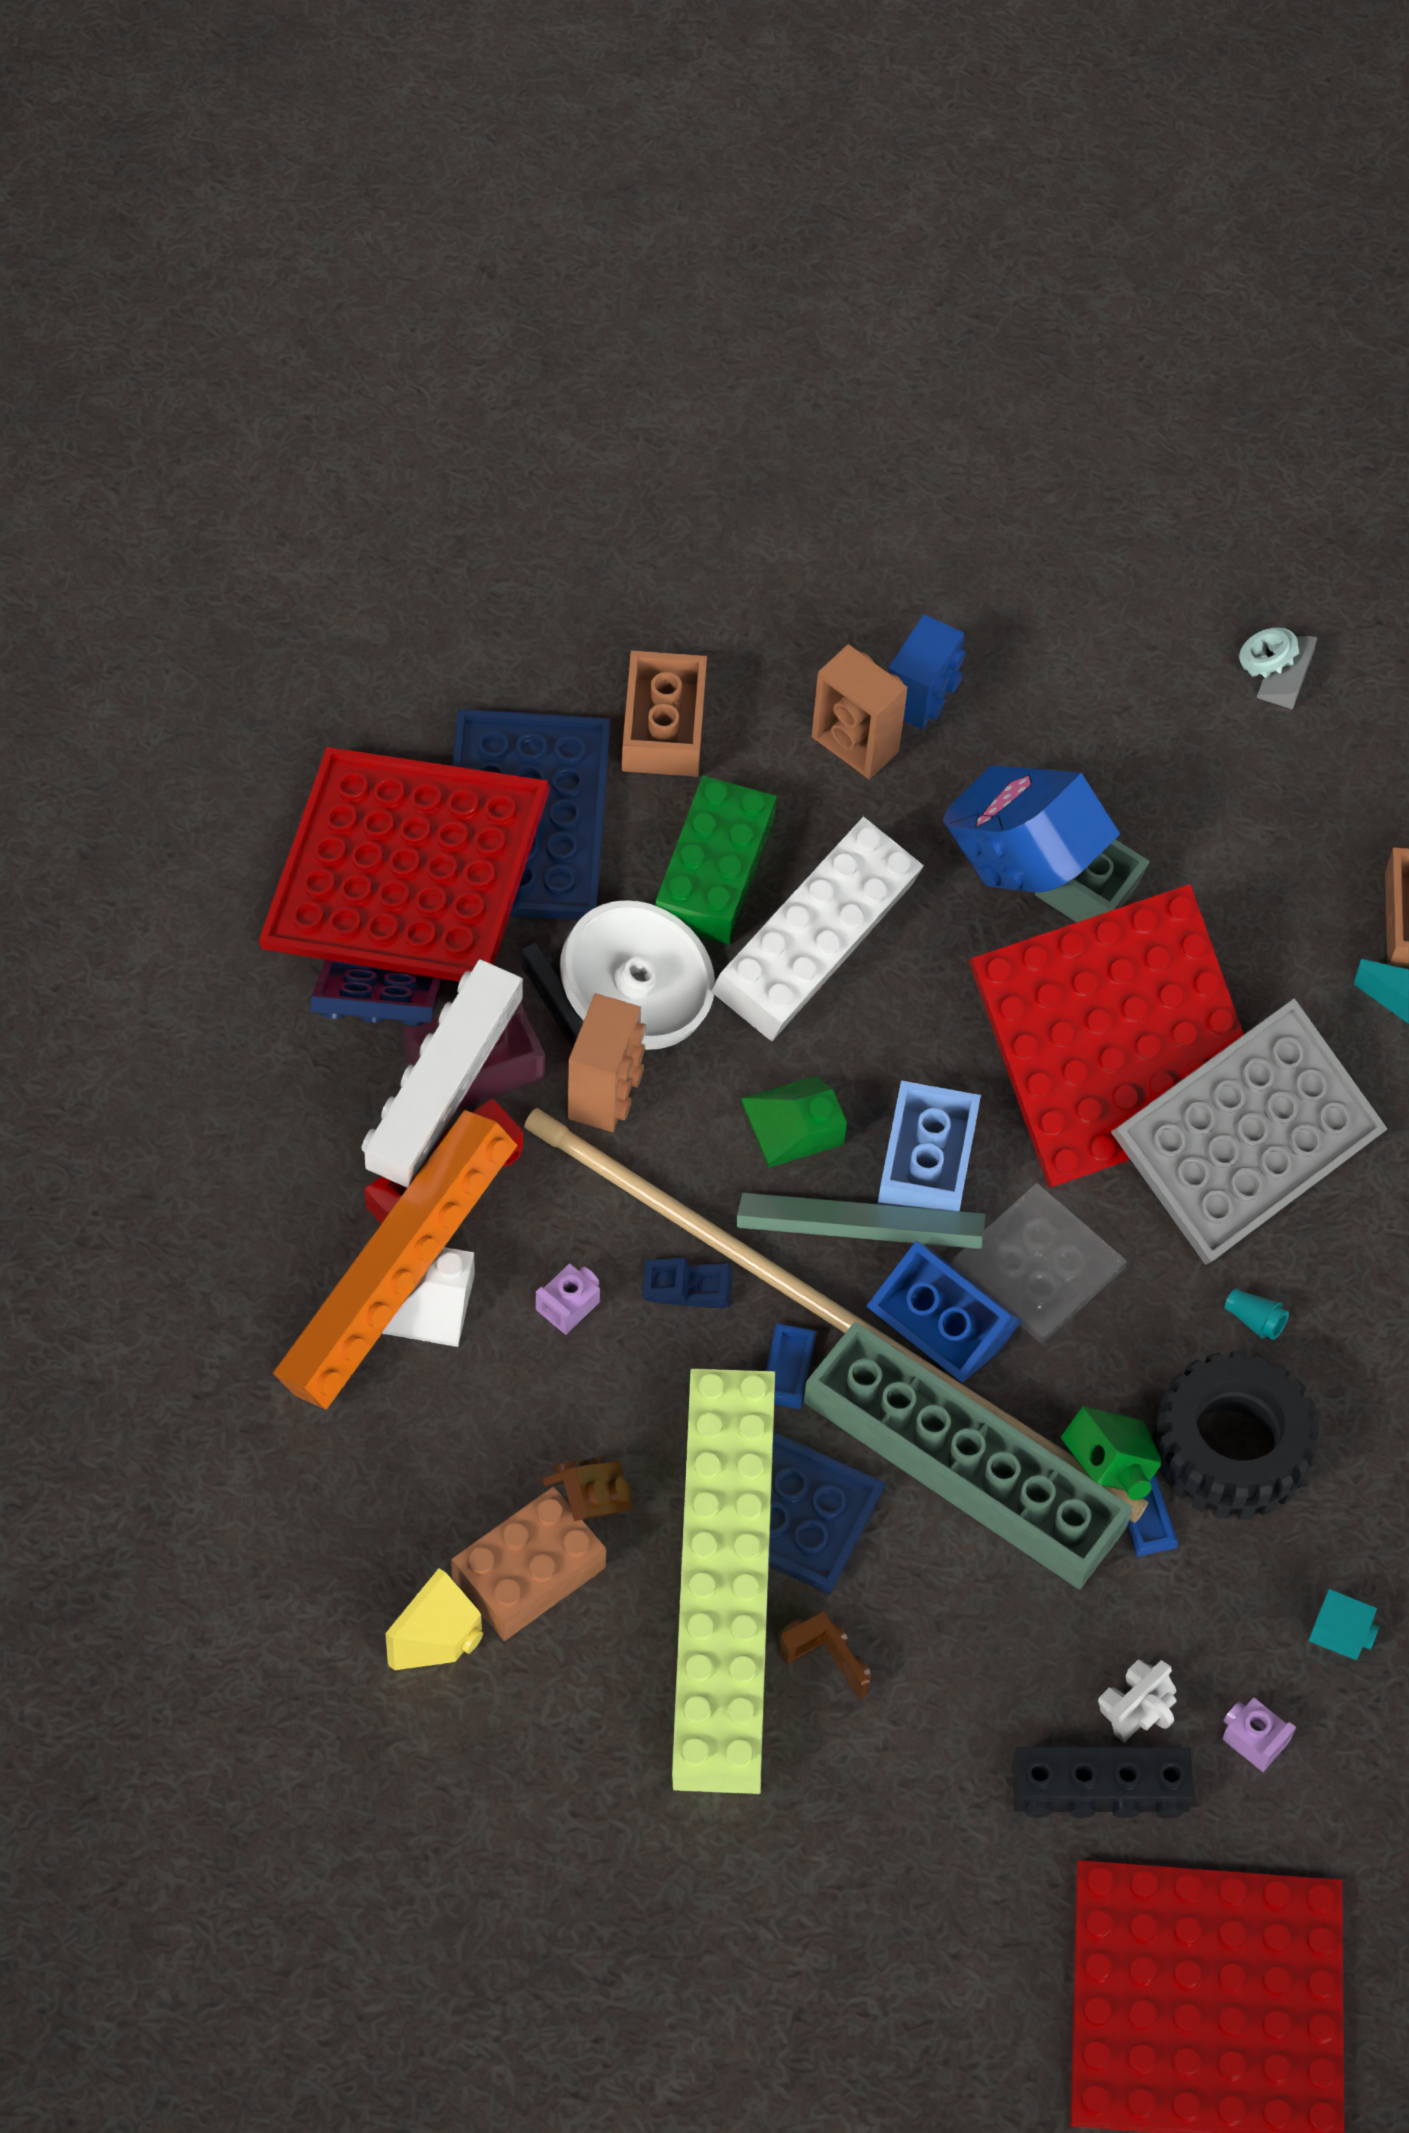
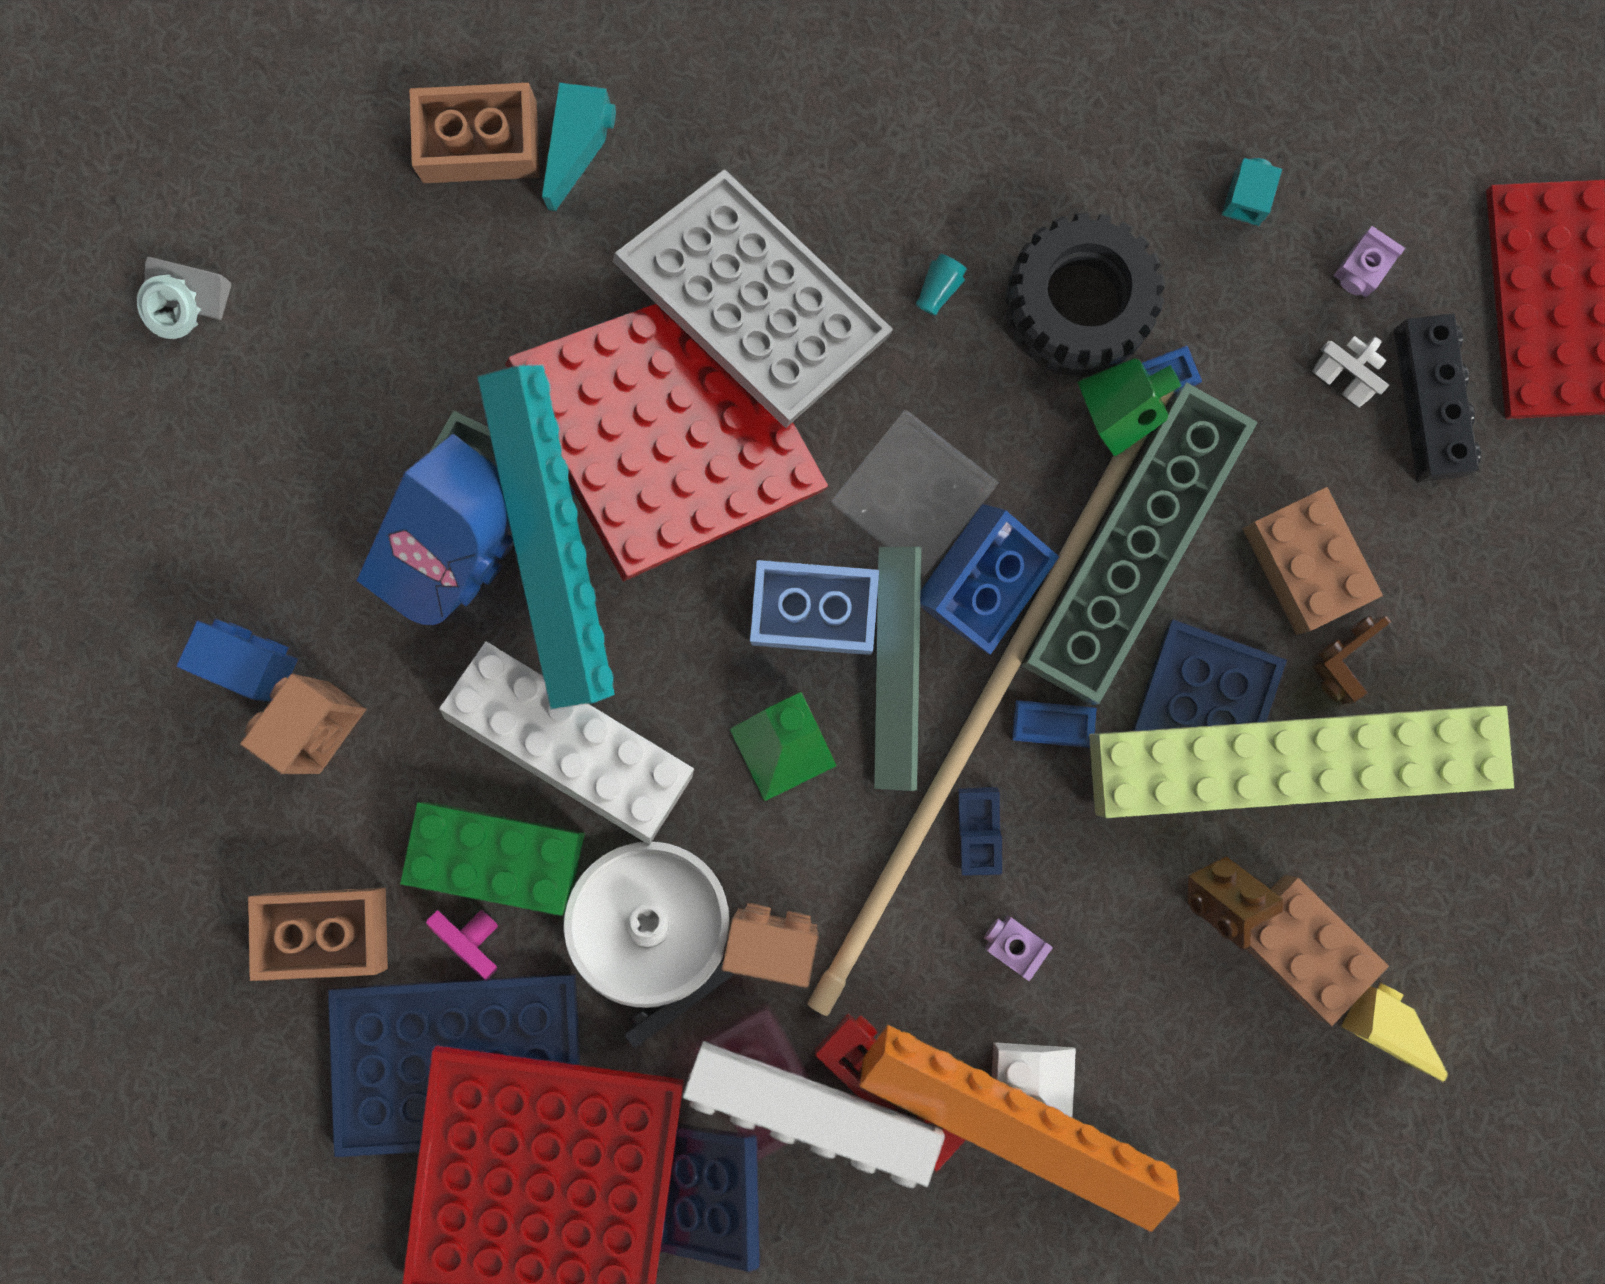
camera: 90 degrees left, 25 degrees up
(639, 831) = (467, 940): none -> dark pink tile
(934, 1625) = (1312, 561): none -> nougat brick
(1016, 900) = (546, 535): none -> teal brick

